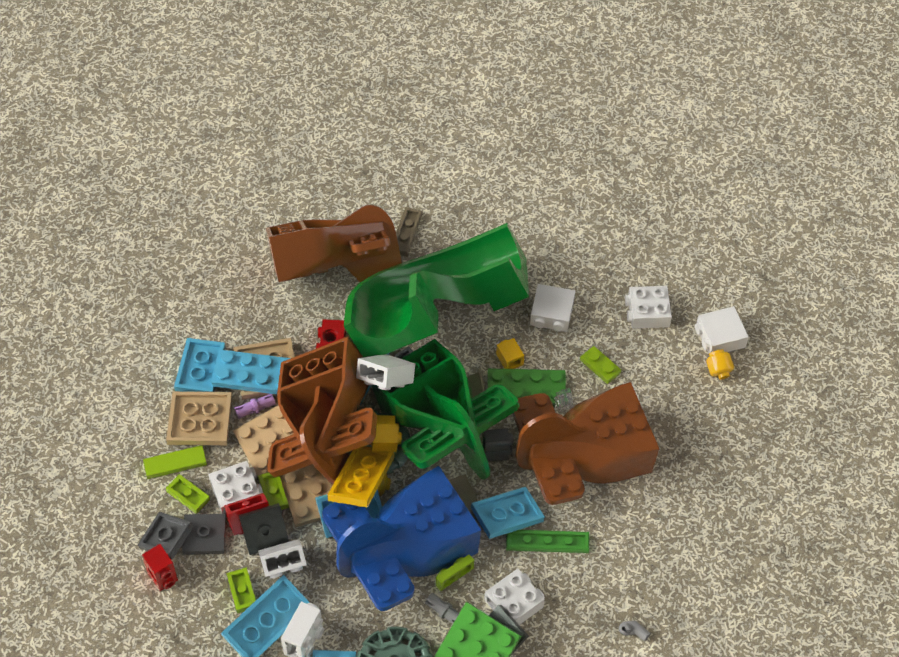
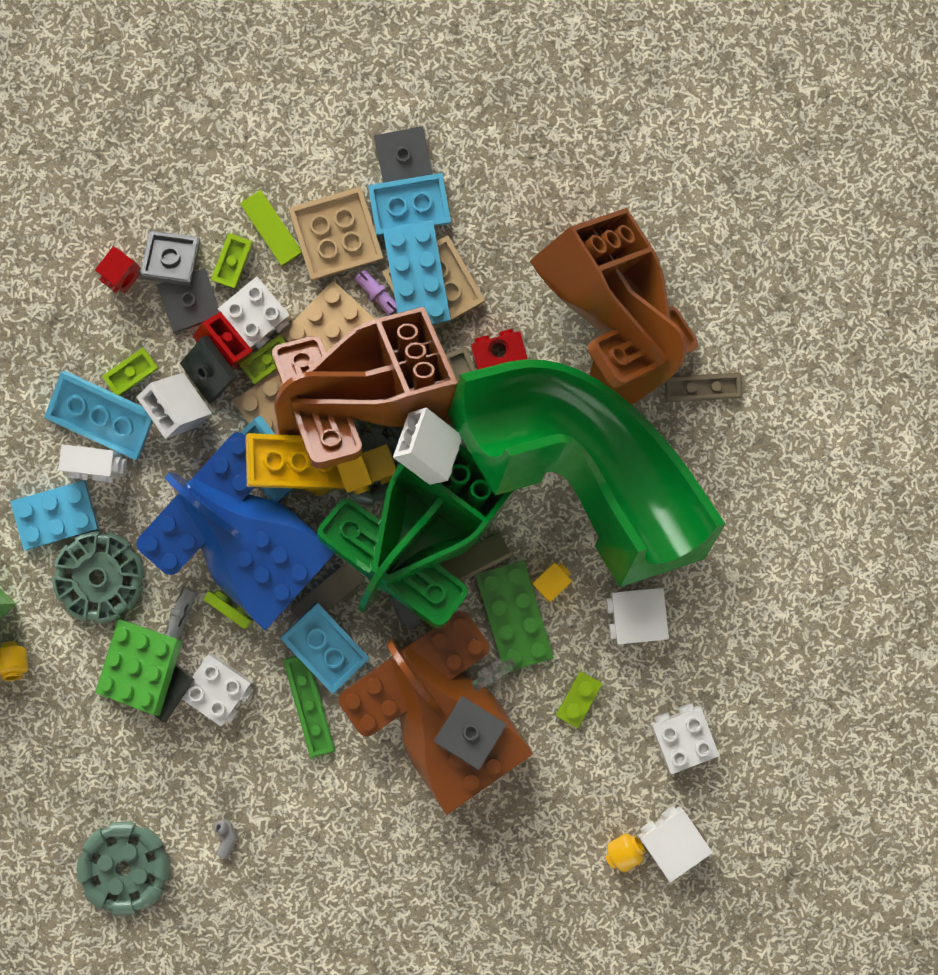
camera: 70 degrees right, 30 degrees up
(161, 361) = (403, 154): none -> dark grey plate
(603, 411) = (469, 733): none -> dark grey plate

